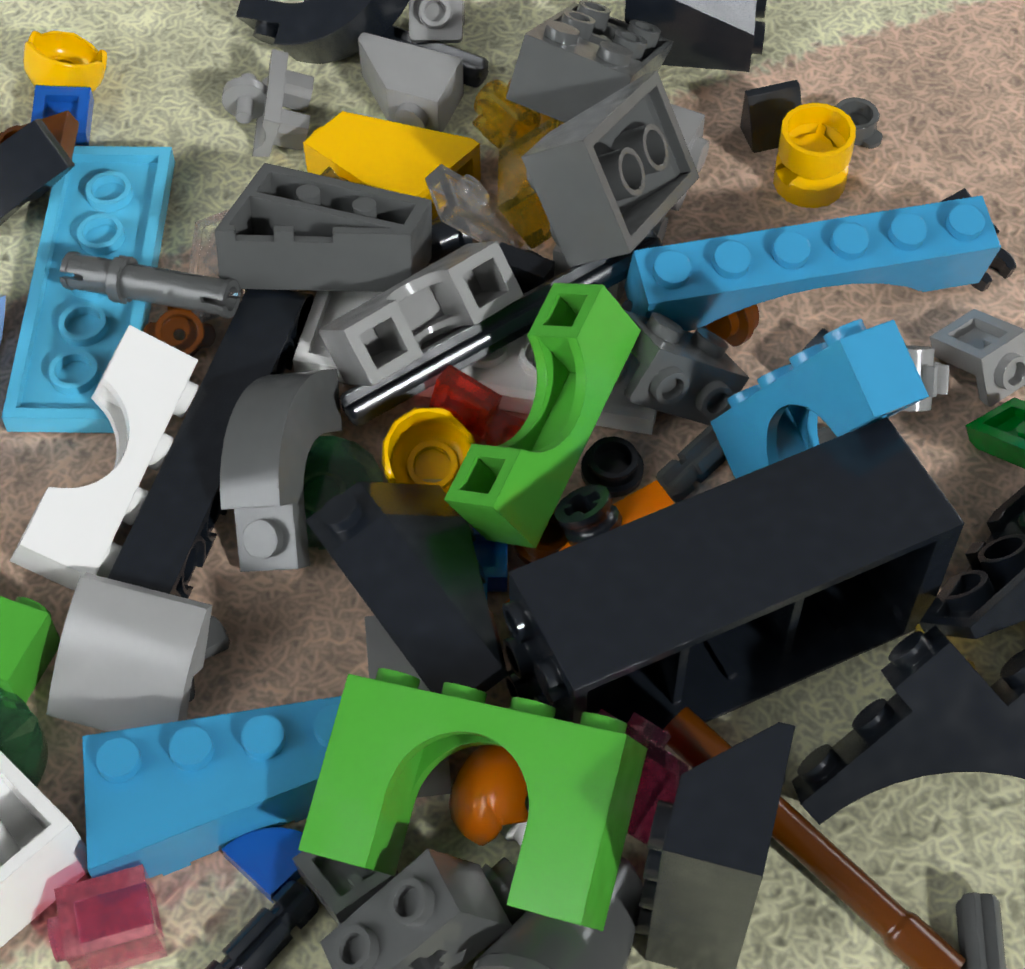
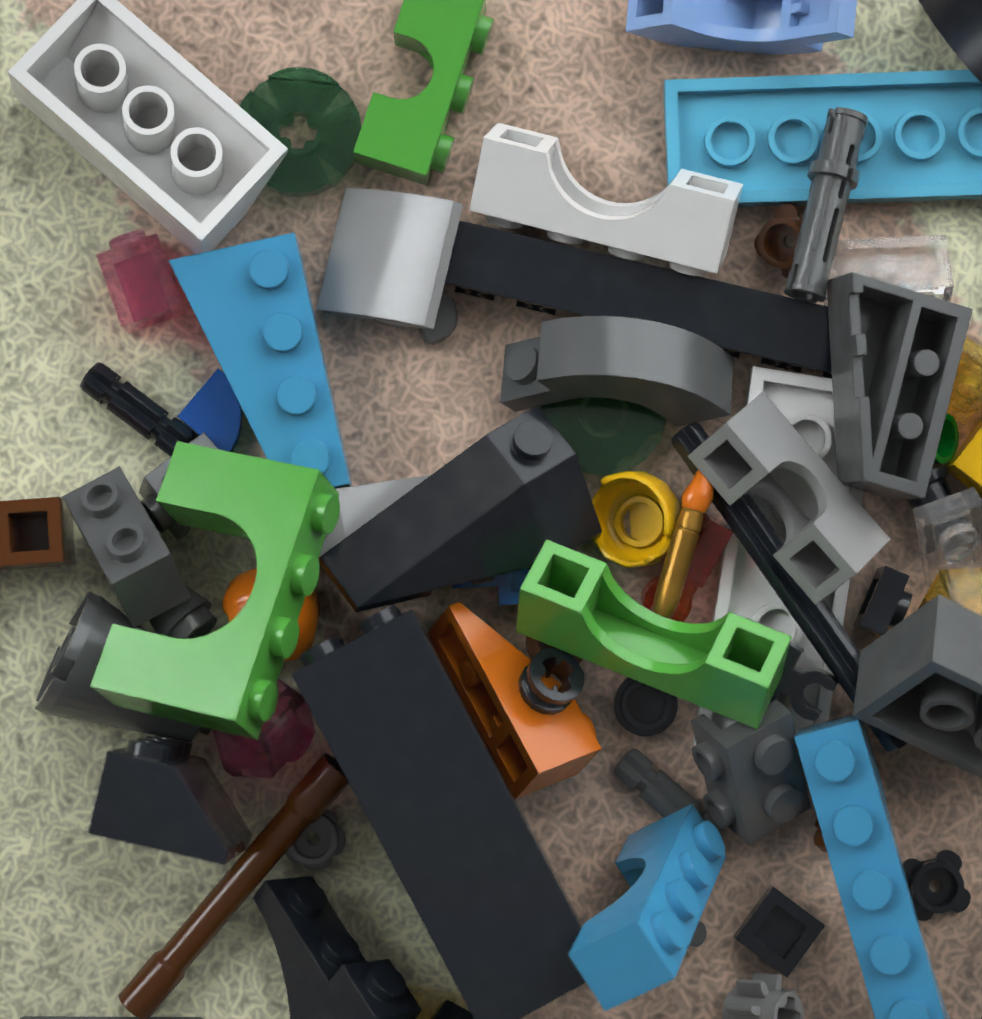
camera: 85 degrees right, 30 degrees up
(457, 400) = (681, 549): none -> pearl gold piece

